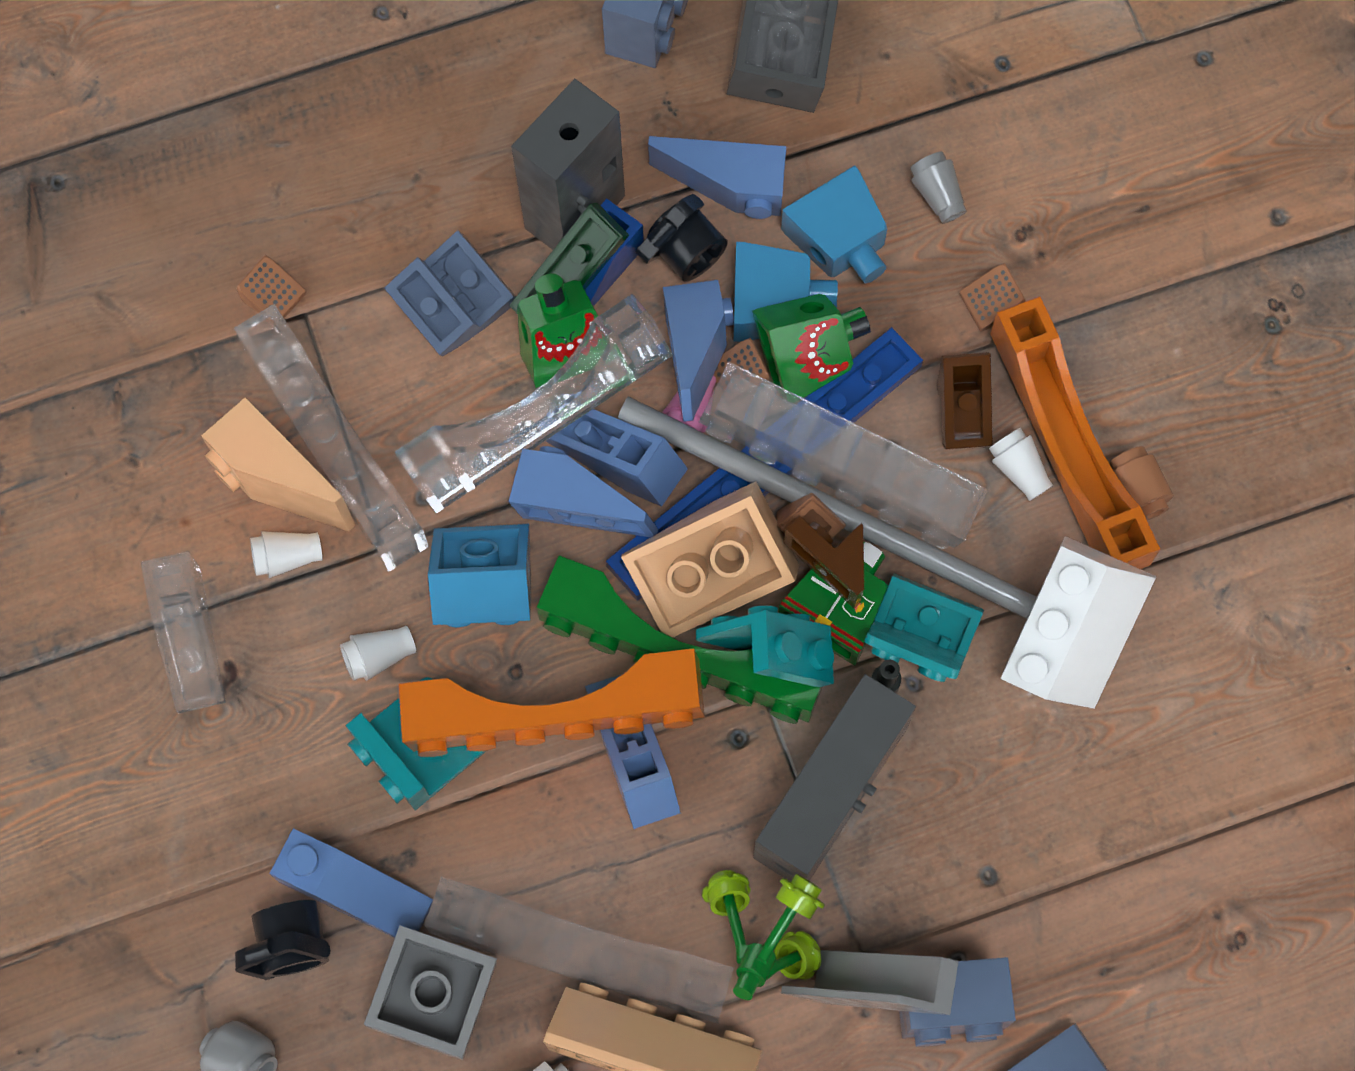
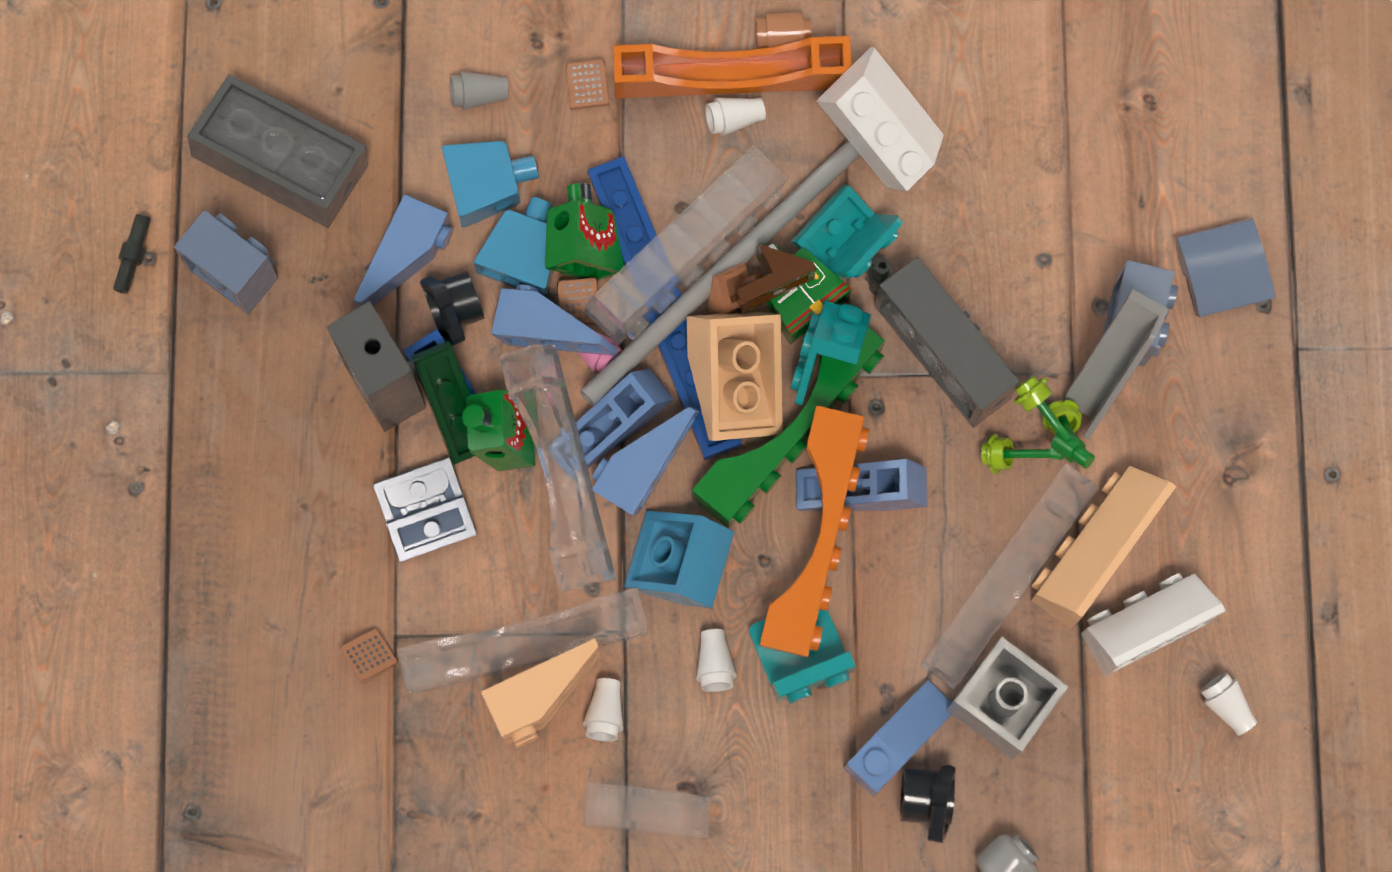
camera: 75 degrees left, 5 degrees up
(966, 400) = (672, 135): reddish brown slope -> none

